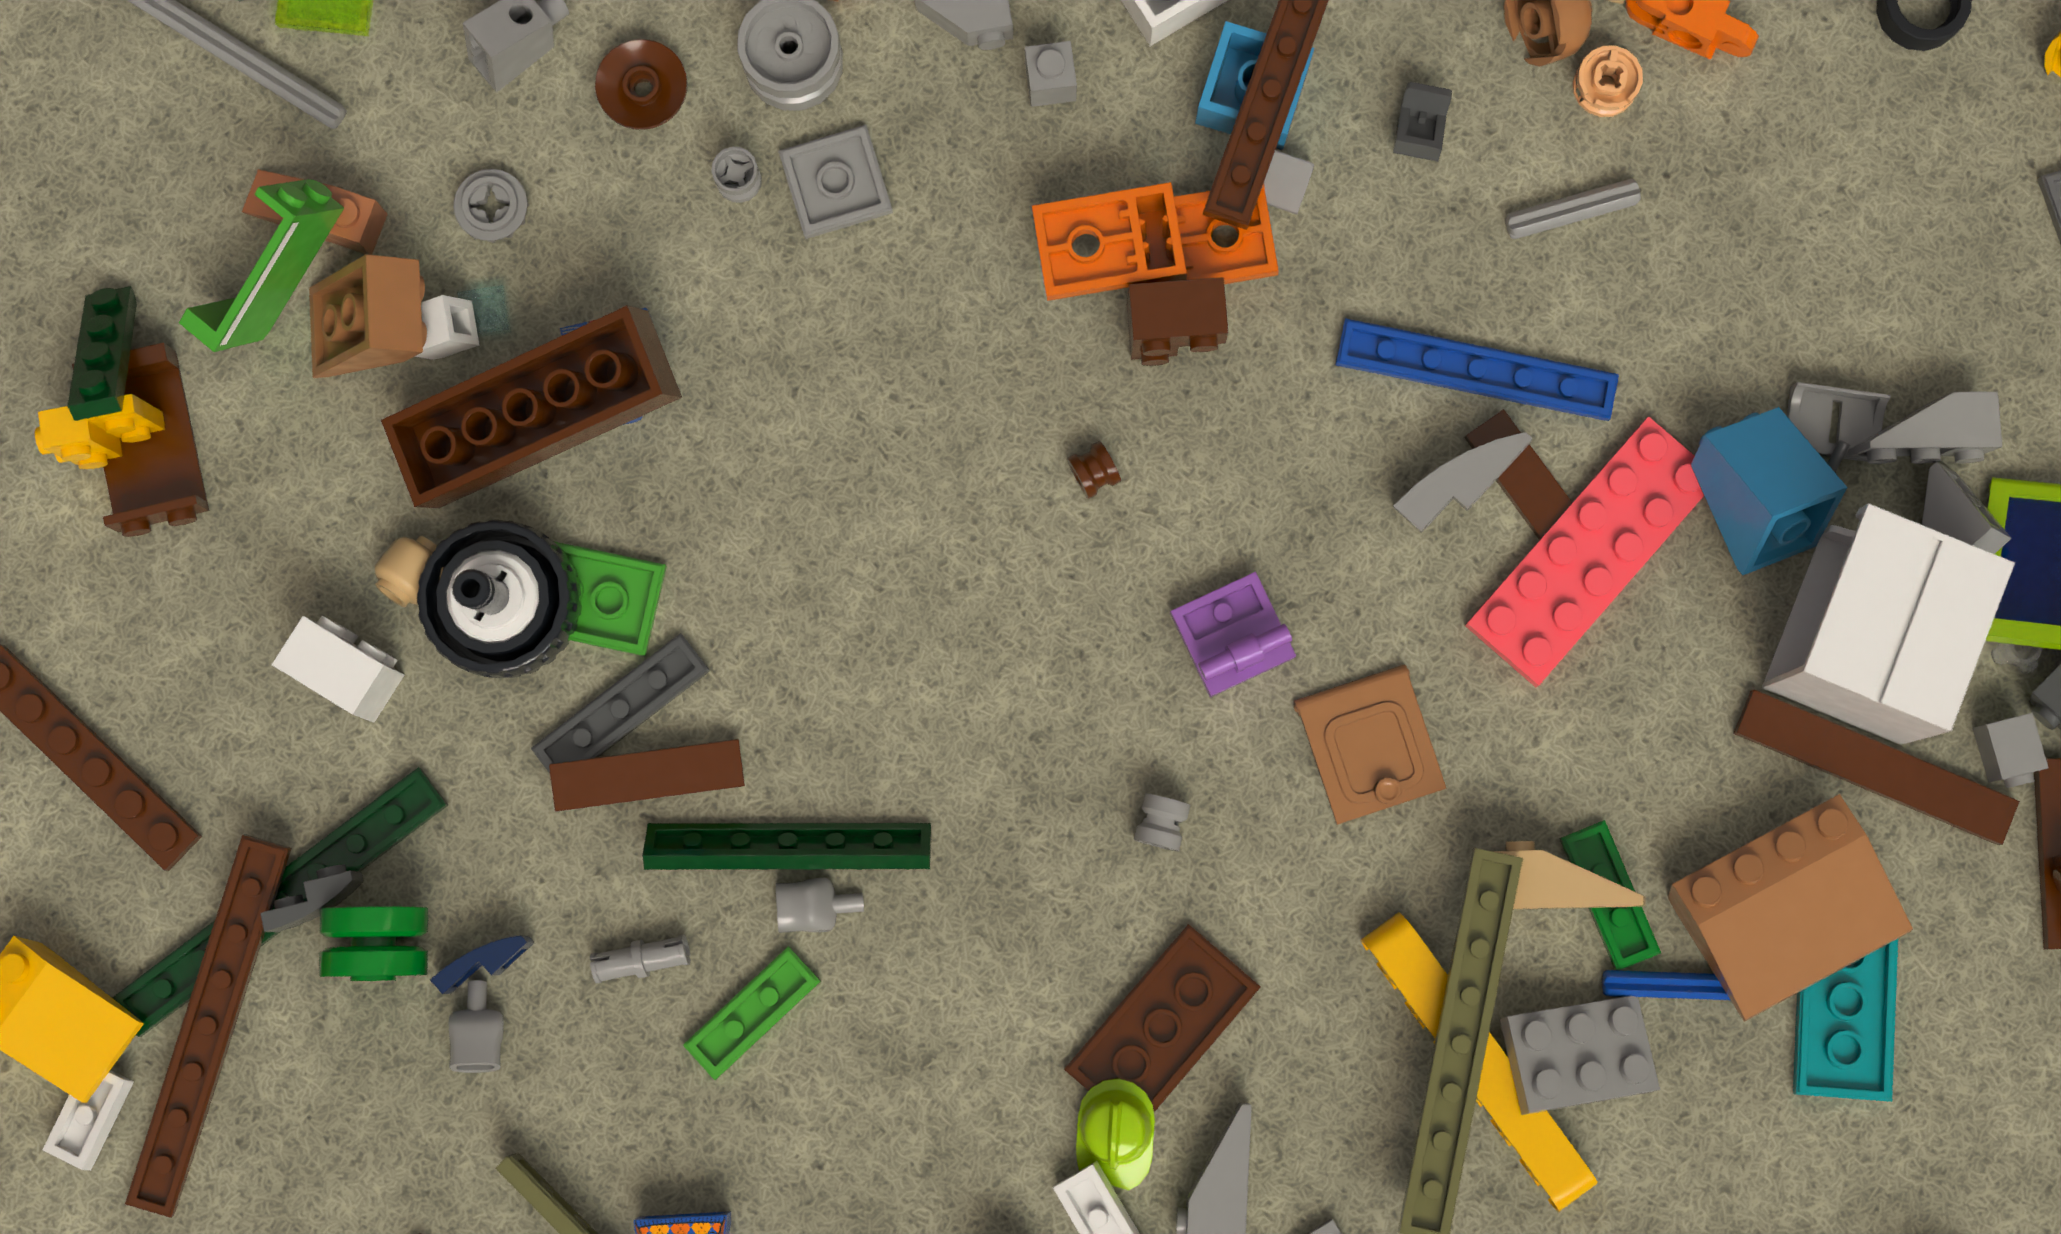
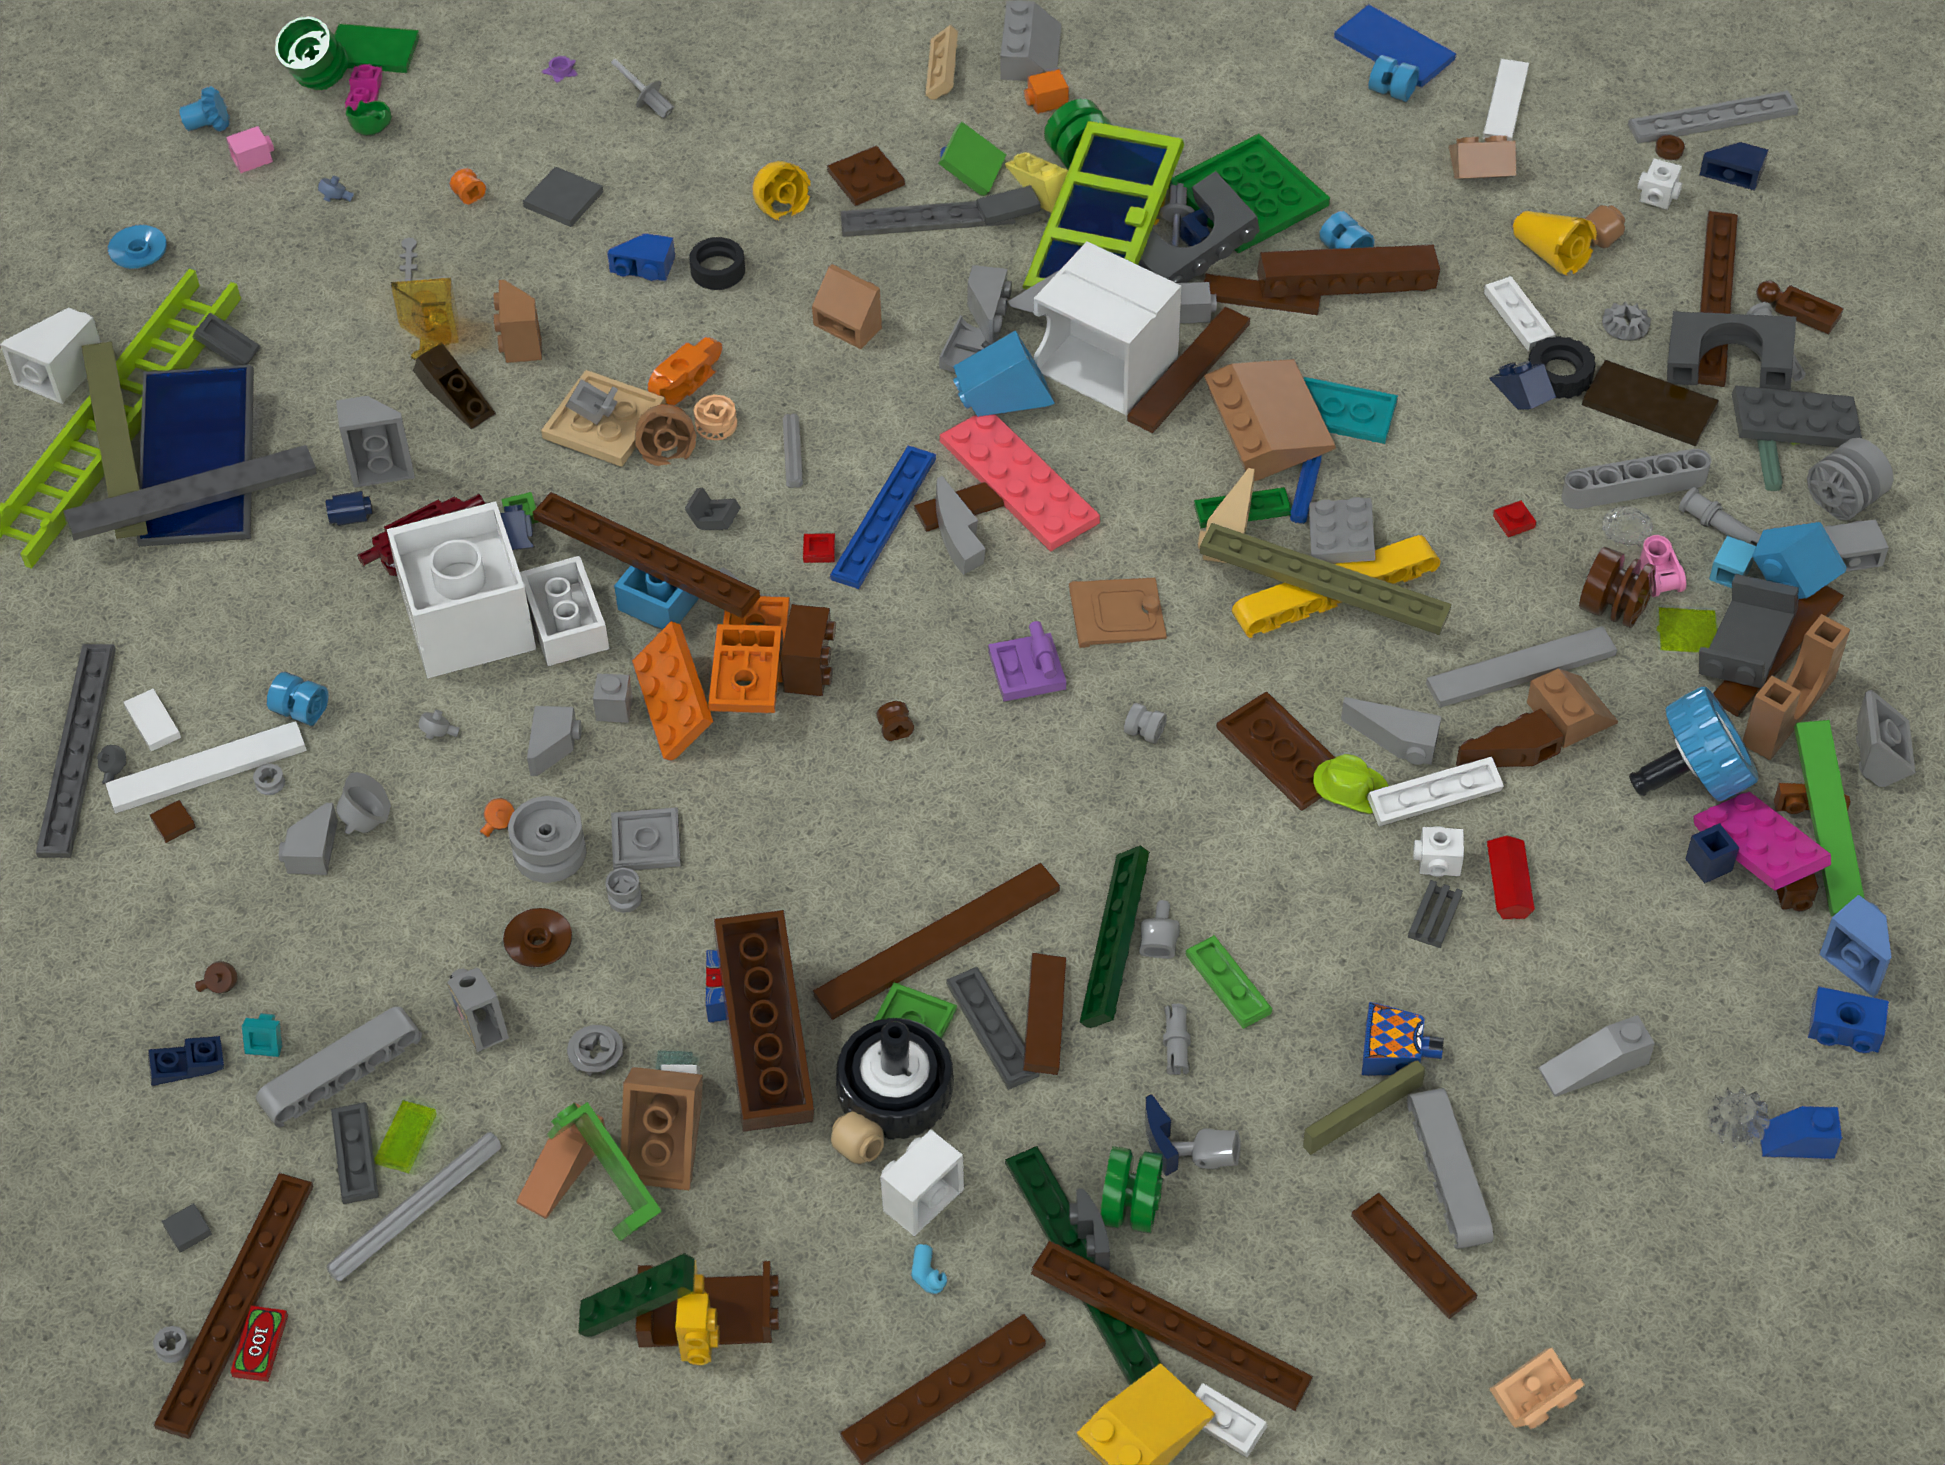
camera: 80 degrees left, 30 degrees down
(238, 699) = (924, 1274): none -> medium azure arm
(745, 608) = (936, 941): none -> reddish brown tile
(1072, 150) = (672, 691): none -> orange plate
(1396, 291) = (819, 548): none -> red tile
(1862, 221) = (847, 307): none -> medium nougat slope

